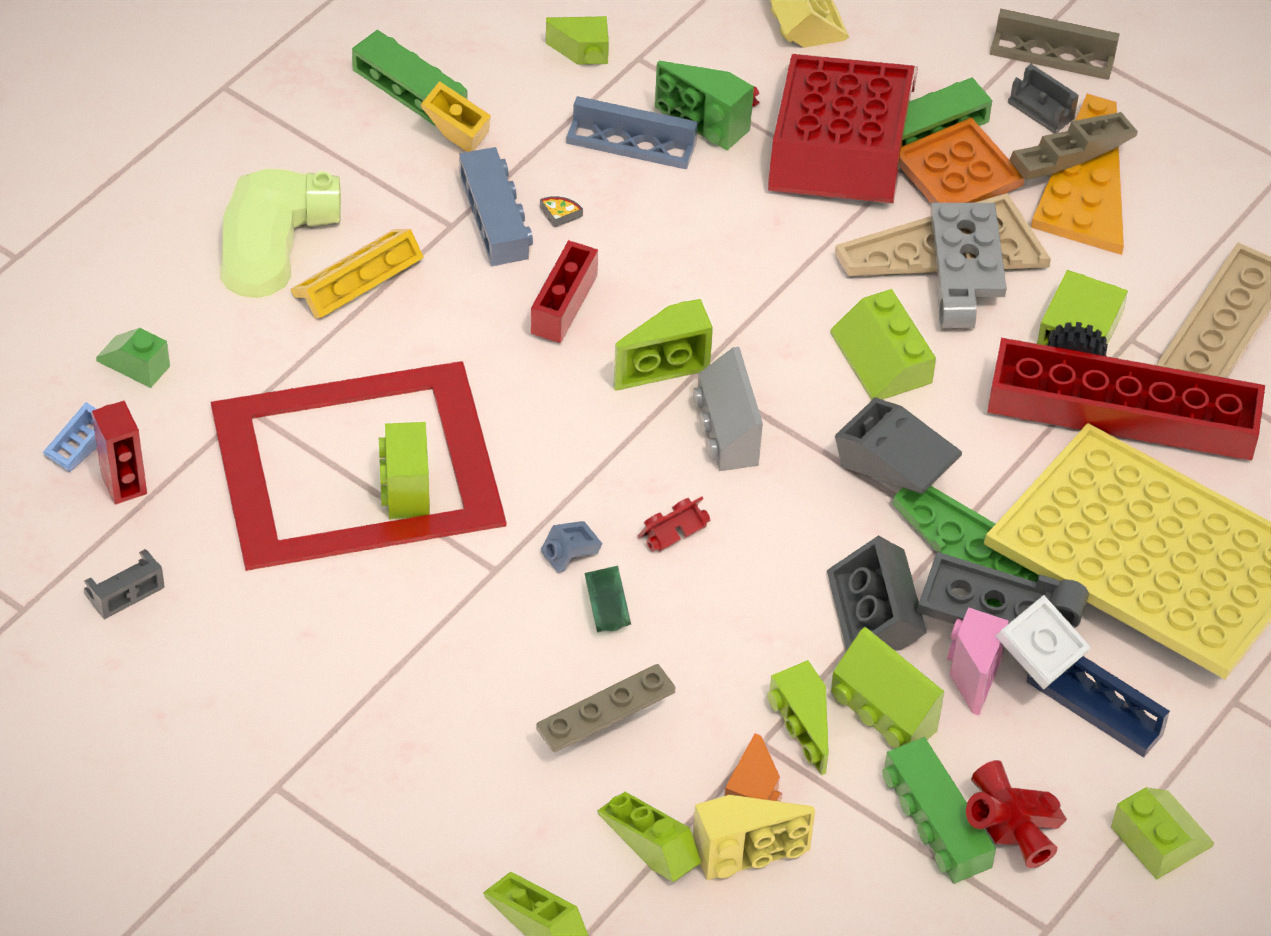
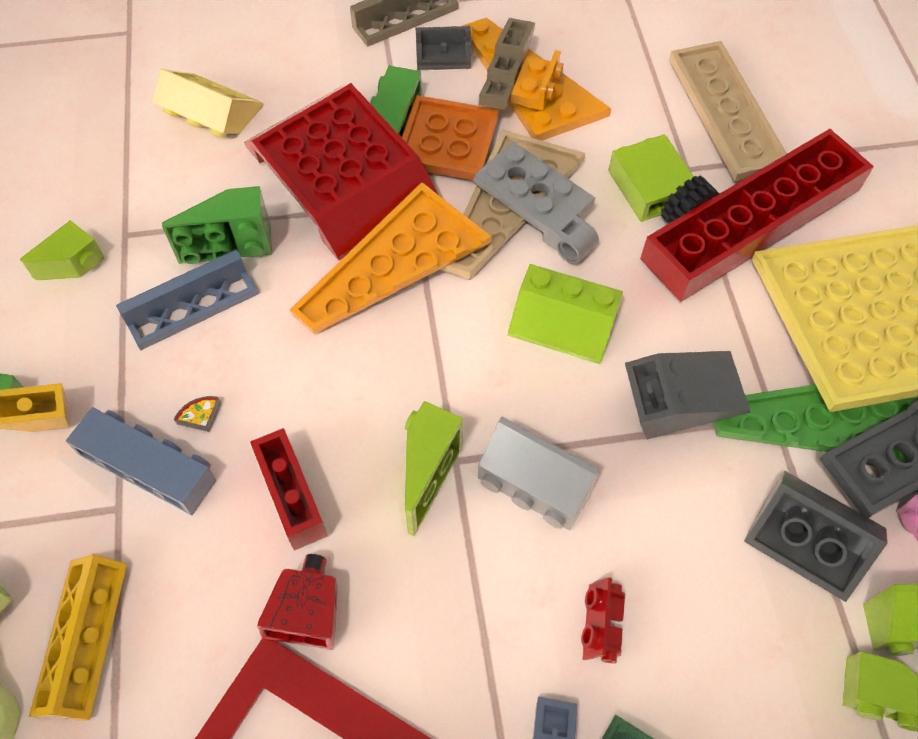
camera: 45 degrees left, 10 degrees up
(500, 360) = (302, 606): none -> red torso
(817, 213) = (403, 248): none -> light orange wing
(1079, 177) = (536, 81): none -> light orange bracket

